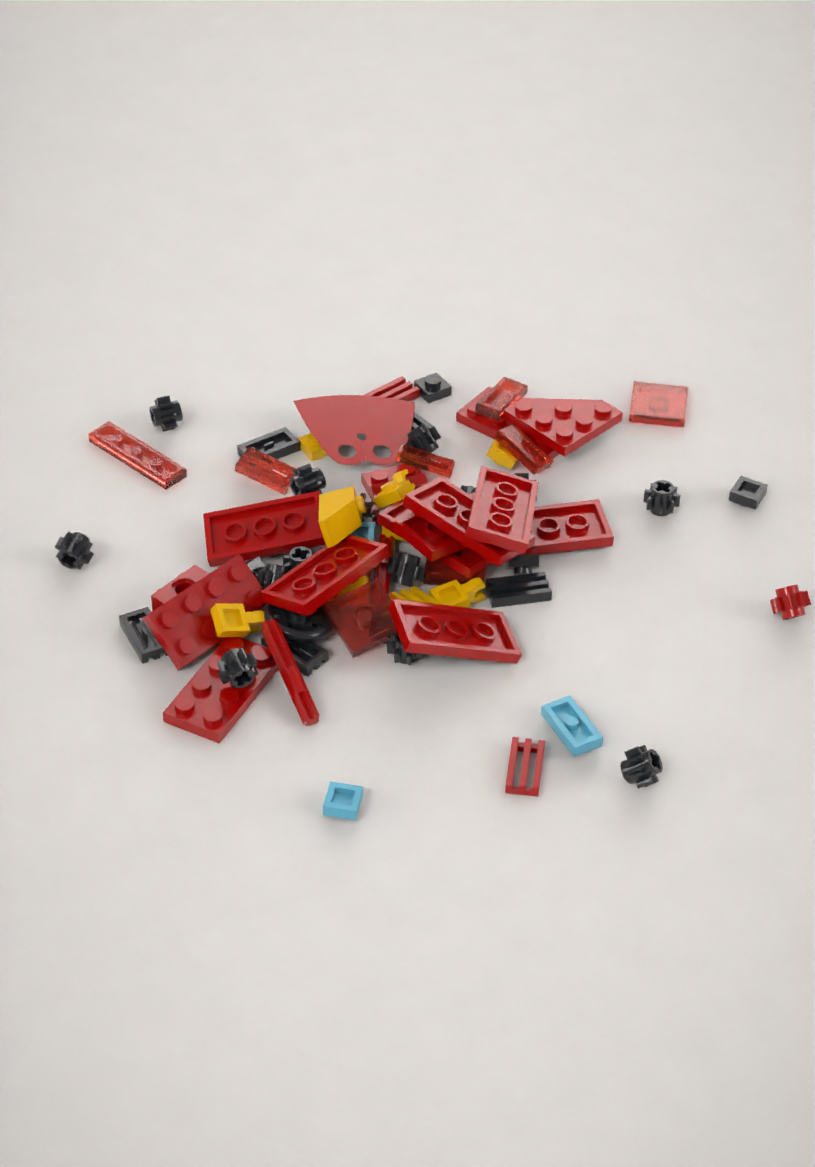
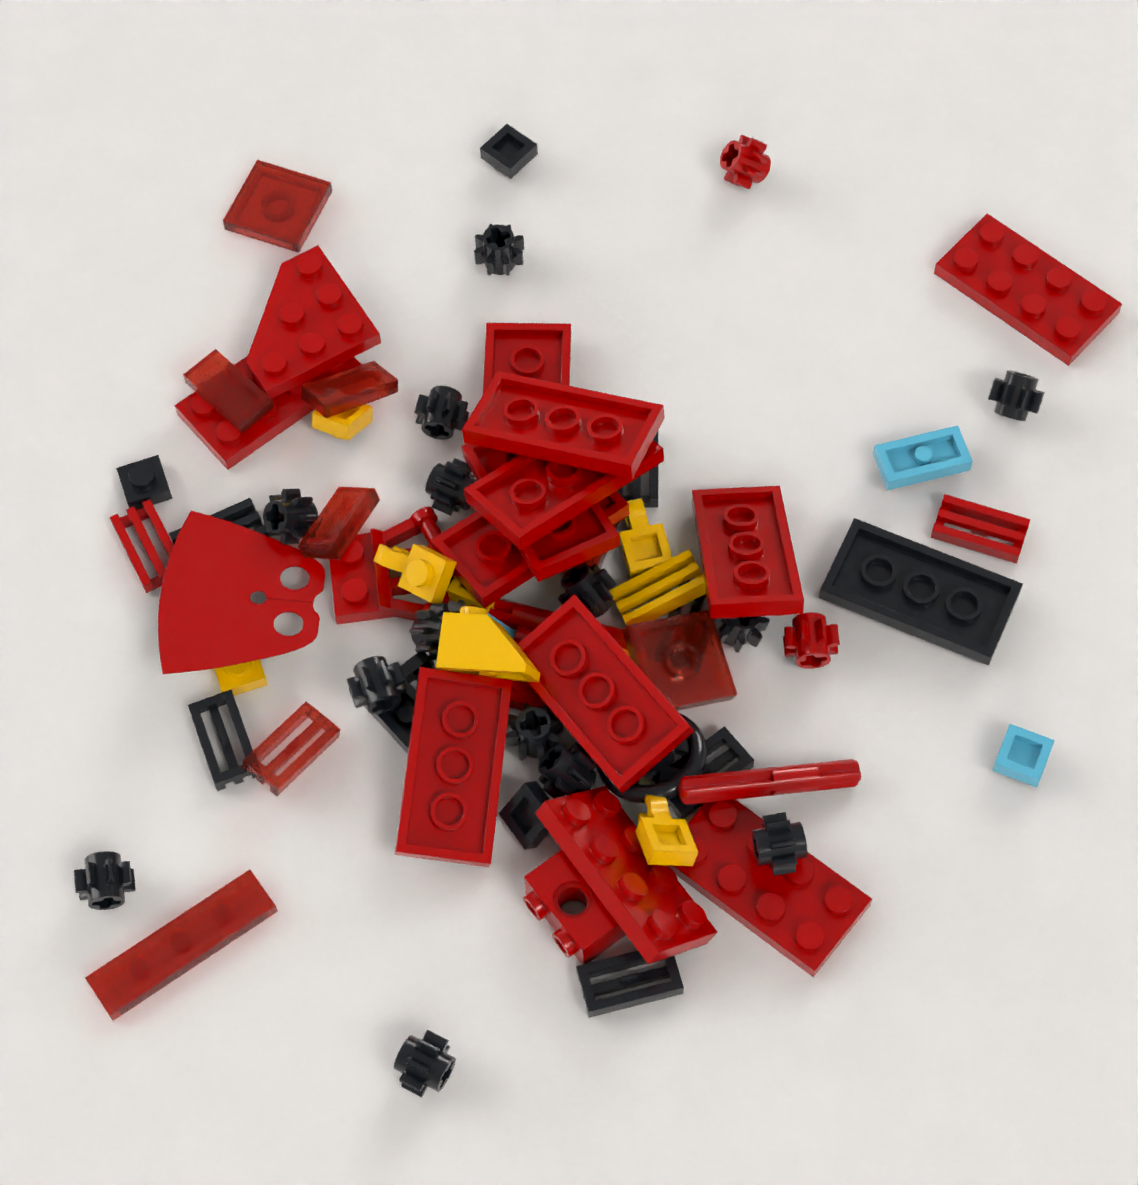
camera: 75 degrees left, 20 degrees up
(401, 680) = (811, 640): none -> red gear
(459, 736) = (921, 591): none -> black plate
(750, 775) = (1027, 289): none -> red plate

